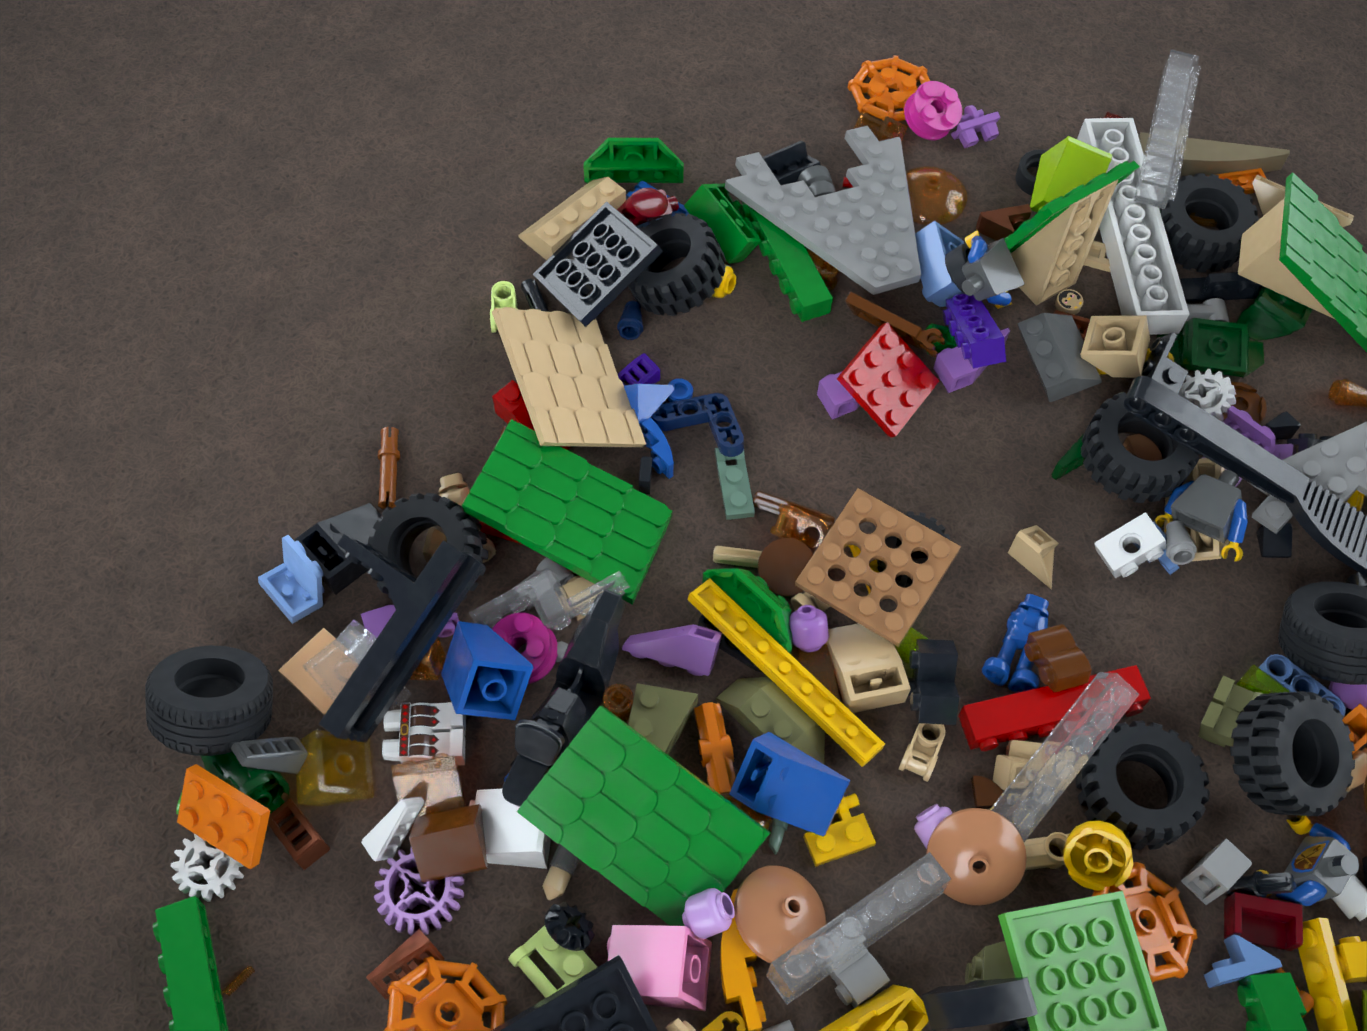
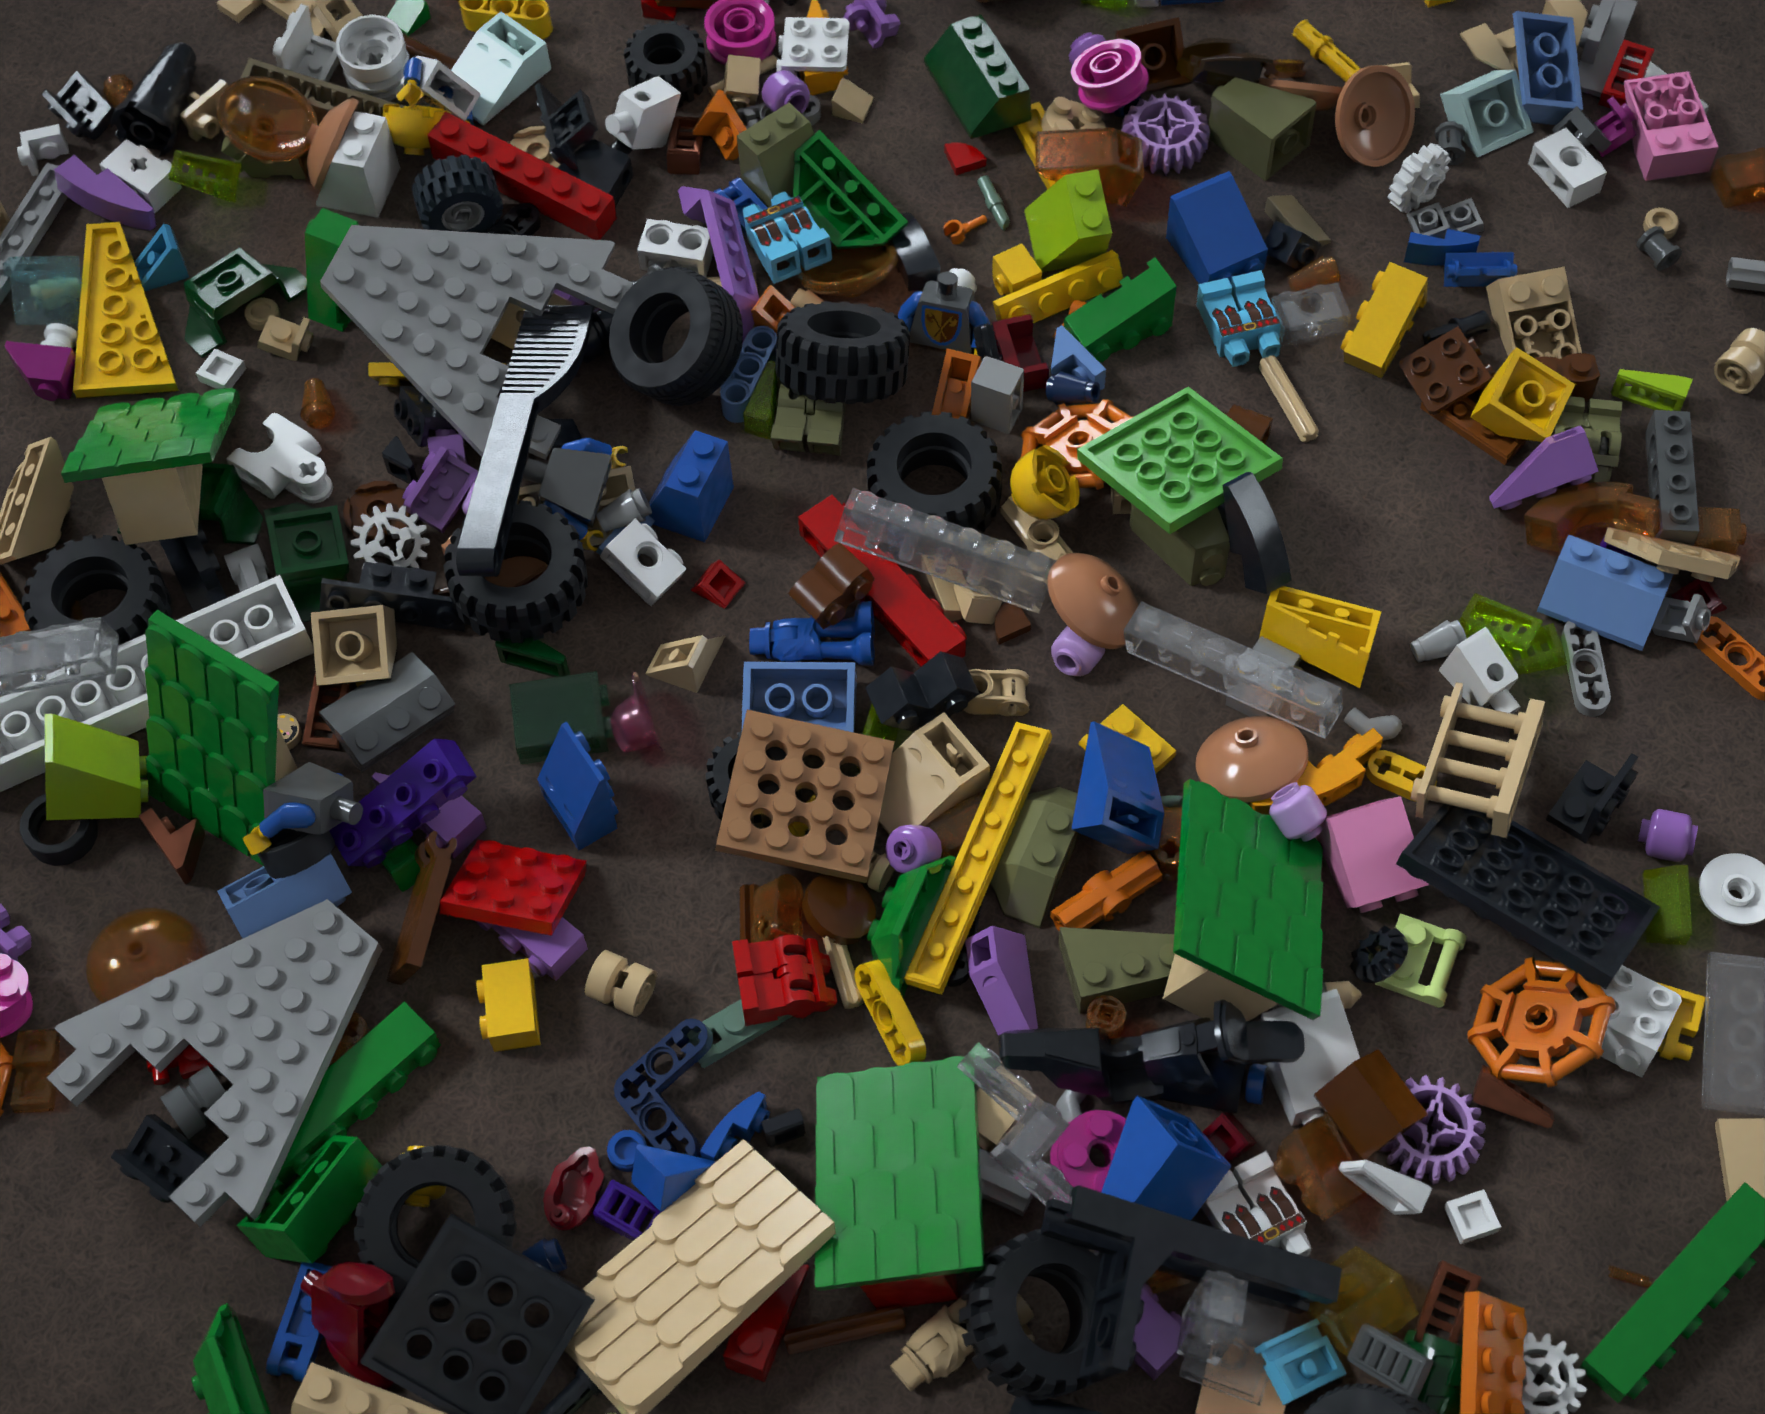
camera: 110 degrees left, 0 degrees up
(309, 702) = (1300, 1361): none -> medium azure plate
(342, 885) = (1472, 1217): none -> white plate
(494, 748) = (1229, 1136): none -> dark red slope
(665, 351) = (574, 1190): none -> dark red arm
(690, 566) = (880, 996): none -> yellow beam
(745, 505) = (798, 981): none -> red hips
(794, 418) = (616, 981): none -> tan wheel
(805, 355) = (509, 1005): none -> yellow brick
(945, 439) = (577, 789): none -> blue slope
(967, 604) = (802, 691): none -> medium blue slope
(994, 498) = (633, 721): none -> clear pink piece
(1016, 454) = (547, 703): none -> clear green brick
(1097, 599) = (718, 584): none -> red slope
(1187, 602) = (694, 487): none -> blue slope
(1210, 946) = (1071, 389): none -> dark blue cone
(1252, 846) = (955, 383): none -> orange slope
(1297, 359) = (287, 463): none -> white piece

